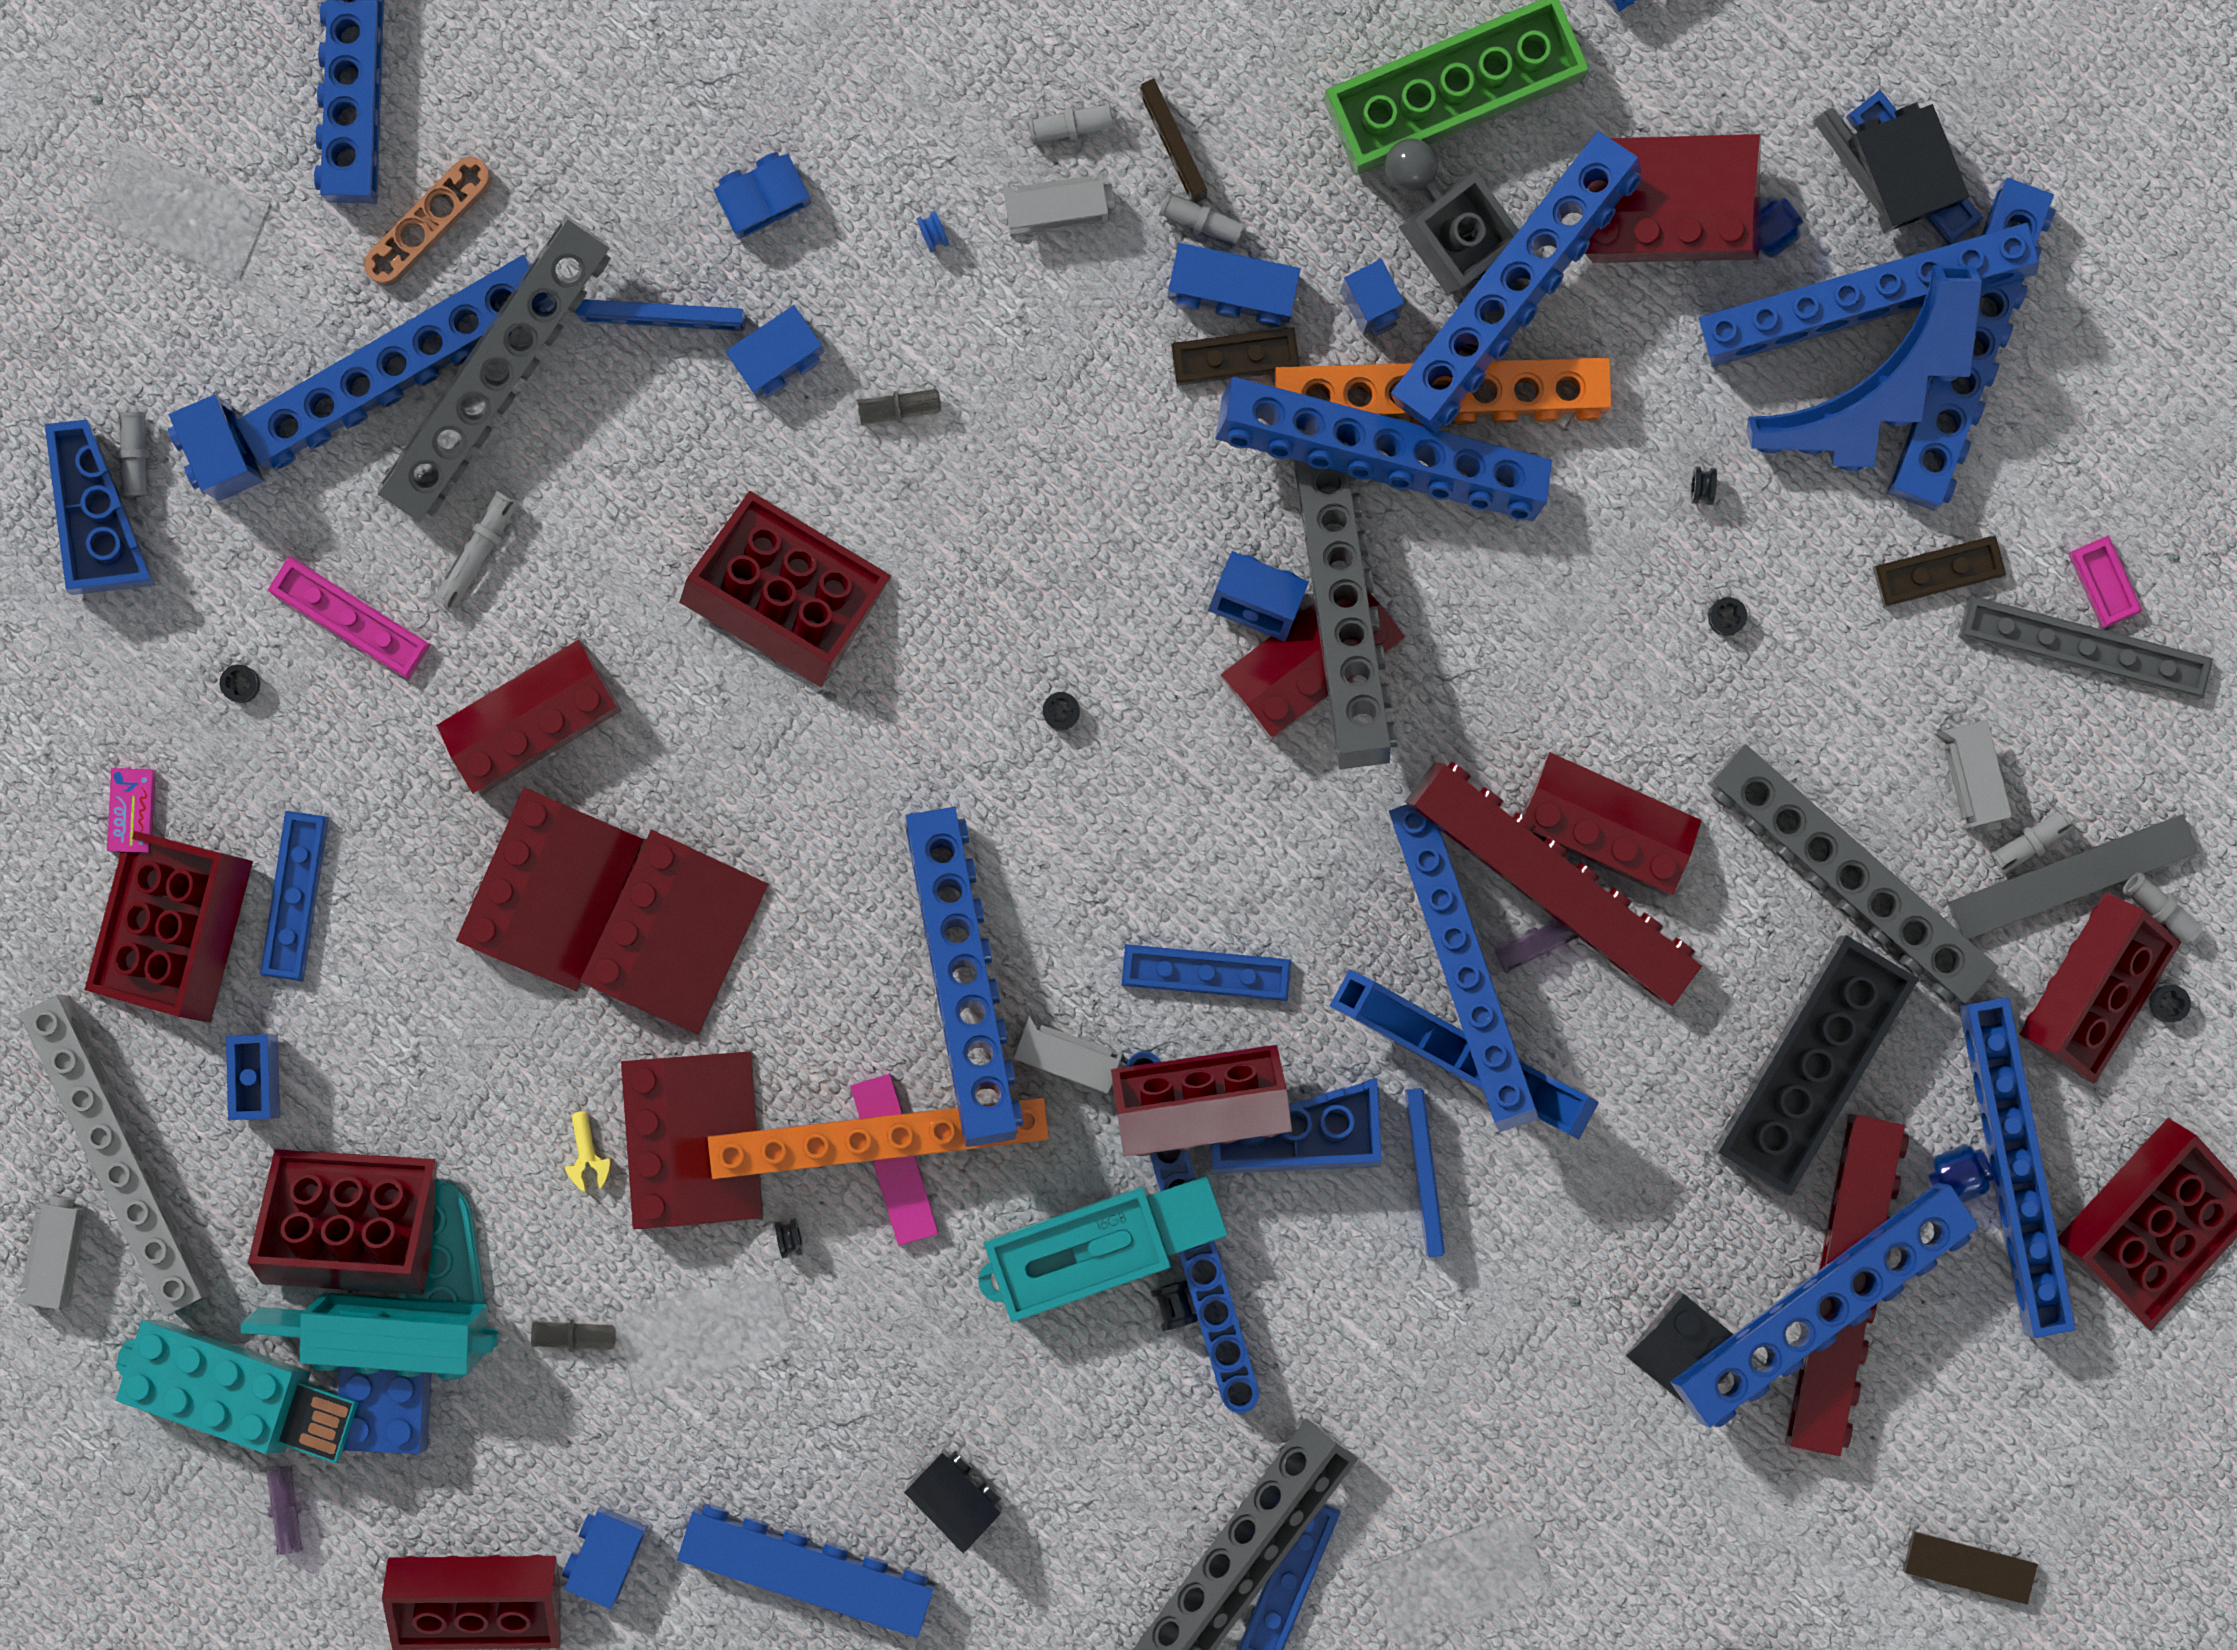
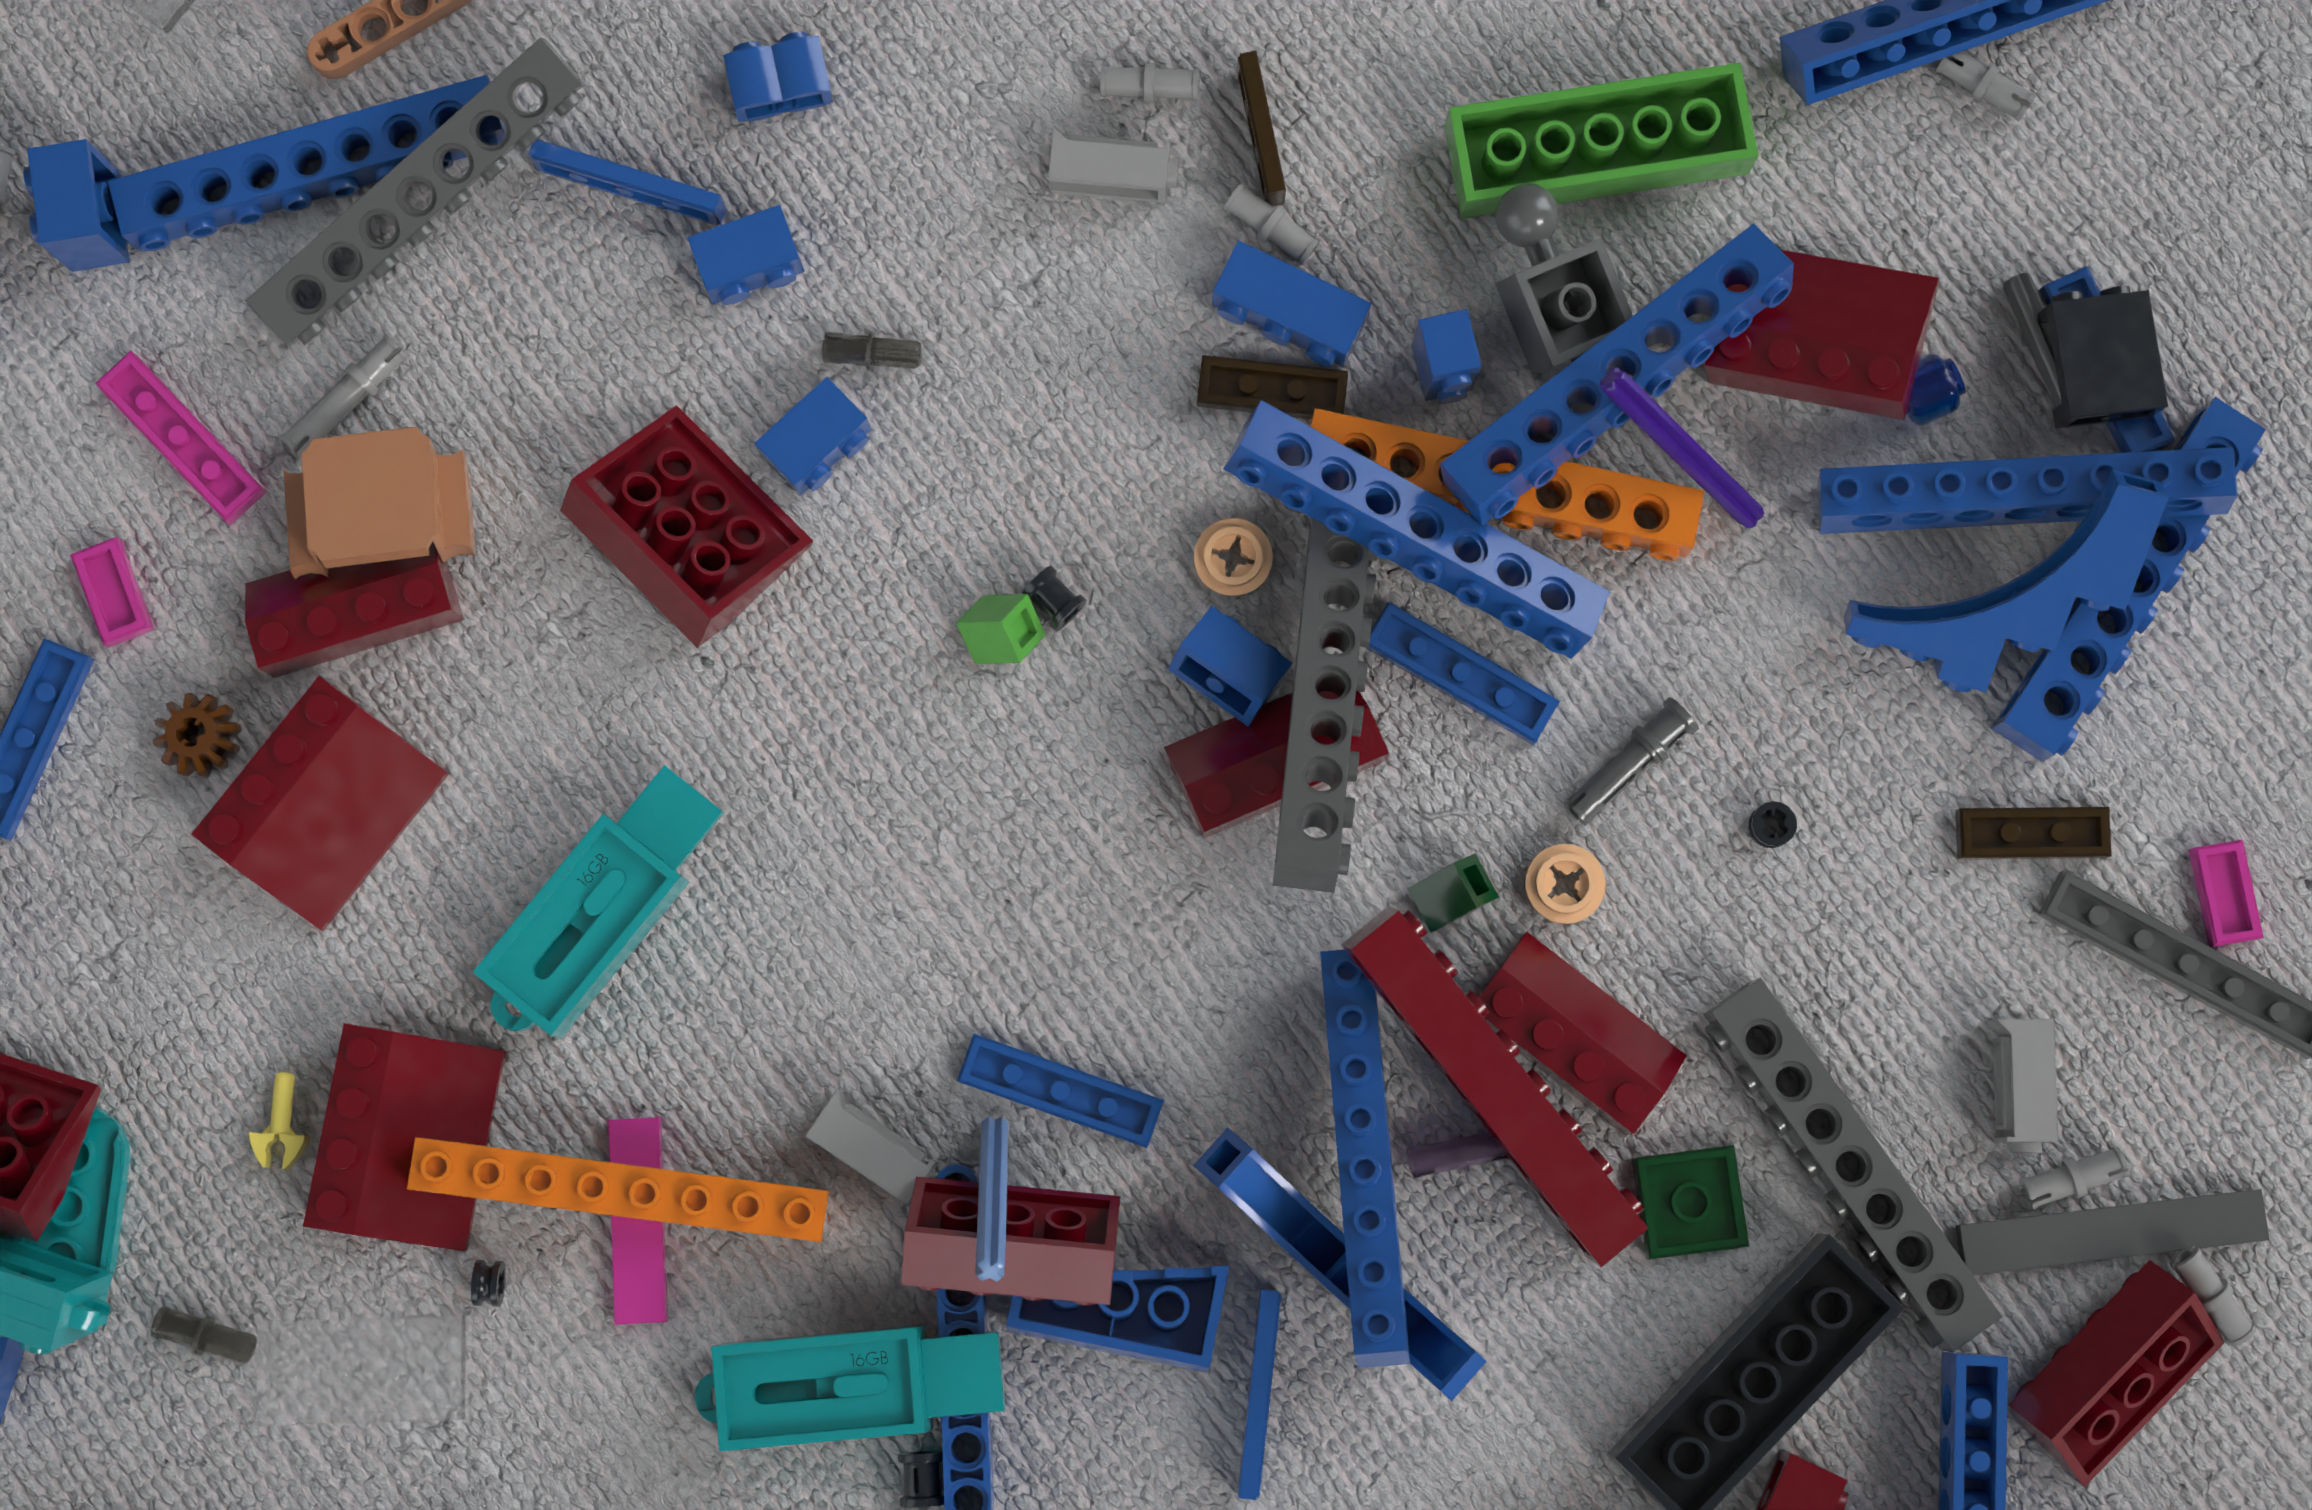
camera: 10 degrees right, 5 degrees down
(247, 673) = (27, 467): black bush -> none
(329, 759) = (112, 592): none -> dark pink tile
(420, 854) = (185, 724): none -> reddish brown gear
(529, 634) = (376, 501): none -> nougat piece
(674, 932) = (446, 887): dark red slope -> none
(798, 917) = (596, 908): none -> teal piece
(871, 490) = (814, 437): none -> blue brick
(932, 231) = (961, 164): blue bush -> none
(978, 1122) = (773, 846): blue brick -> none
(1064, 610) = (1001, 629): none -> bright green panel
(1072, 704) = (982, 738): black bush -> none
(1100, 575) = (1054, 598): none -> black bush
(1178, 1071) = (992, 1199): none -> medium blue axle
(1252, 492) = (1220, 538): none -> light nougat gear
(1447, 554) = (1461, 673): none -> blue tile
(1483, 735) = (1453, 892): none -> dark green brick
(1582, 330) = (1681, 447): none -> dark purple axle
(1591, 704) = (1589, 885): none -> light nougat gear
(1611, 578) = (1647, 747): none -> dark grey pin
(1703, 485) = (1779, 666): black bush -> none
(1731, 936) = (1690, 1202): none -> dark green tile
(2177, 993) = (2206, 1401): black bush -> none

